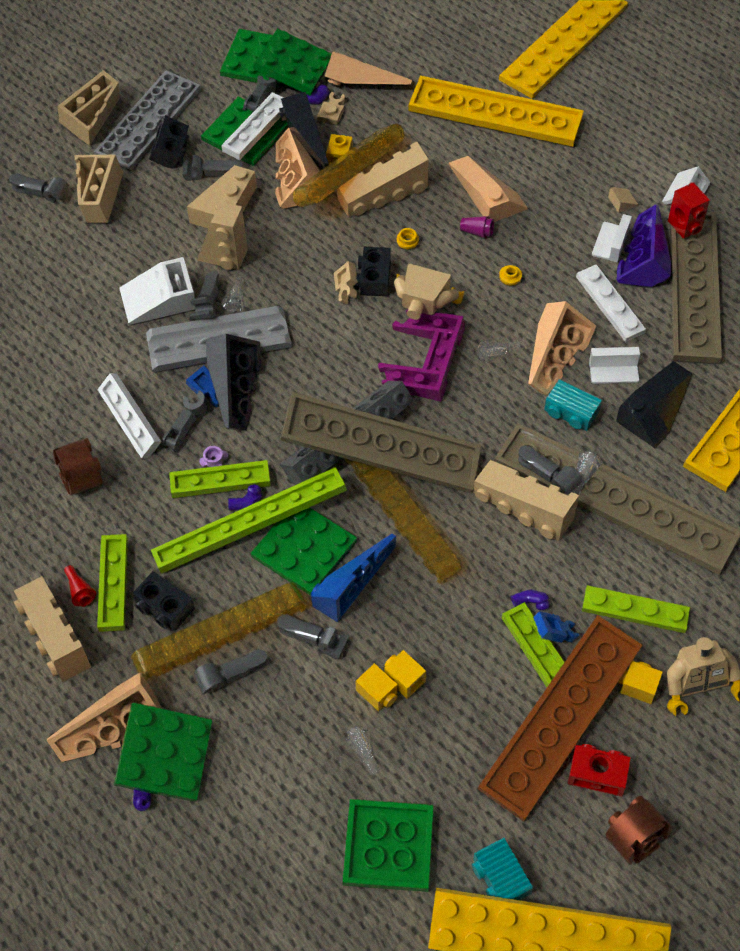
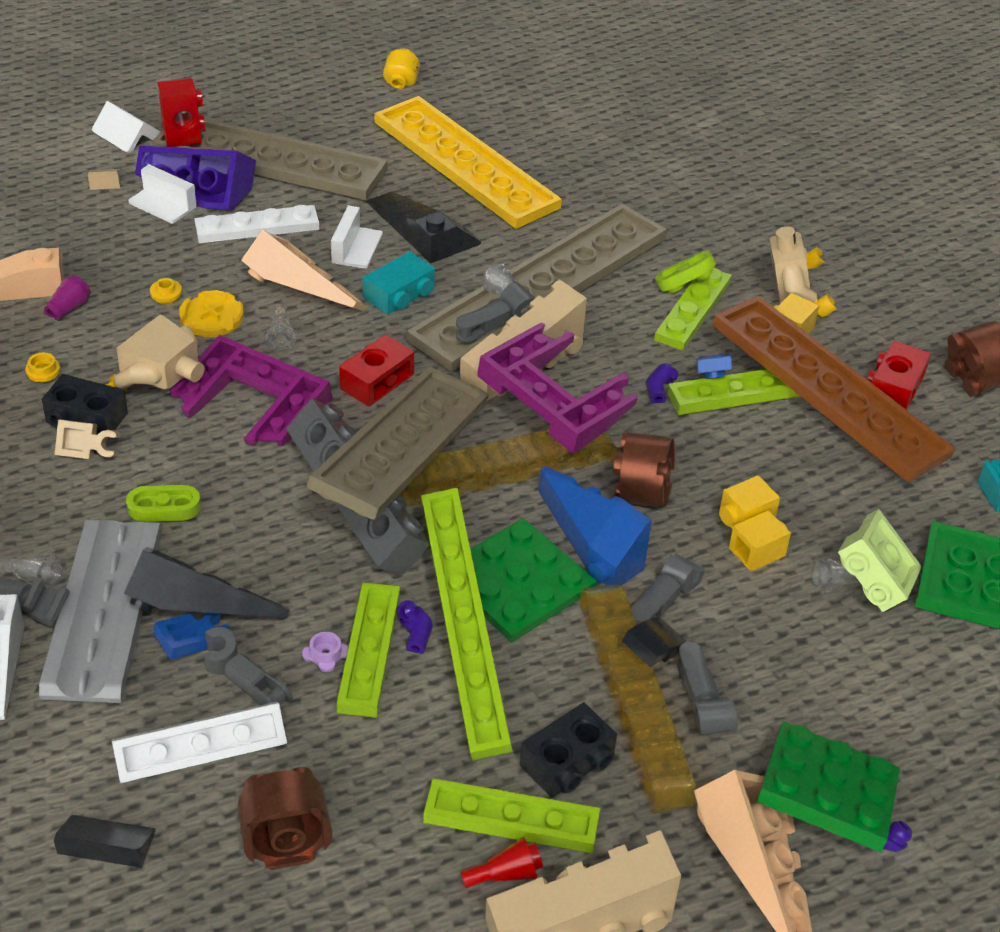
camera: 80 degrees left, 15 degrees down
(60, 395) = (104, 840): none -> black slope
(260, 633) = (653, 641): none -> black slope
(307, 341) = (163, 503): none -> lime plate
(370, 767) = (880, 561): none -> yellowish green plate
(415, 599) = (645, 469): none -> copper brick
(472, 488) = (572, 420): none -> magenta wedge
(477, 426) = (376, 370): none -> red brick
(499, 308) = (212, 313): none -> yellow tile
(665, 592) = (695, 267): none -> lime plate

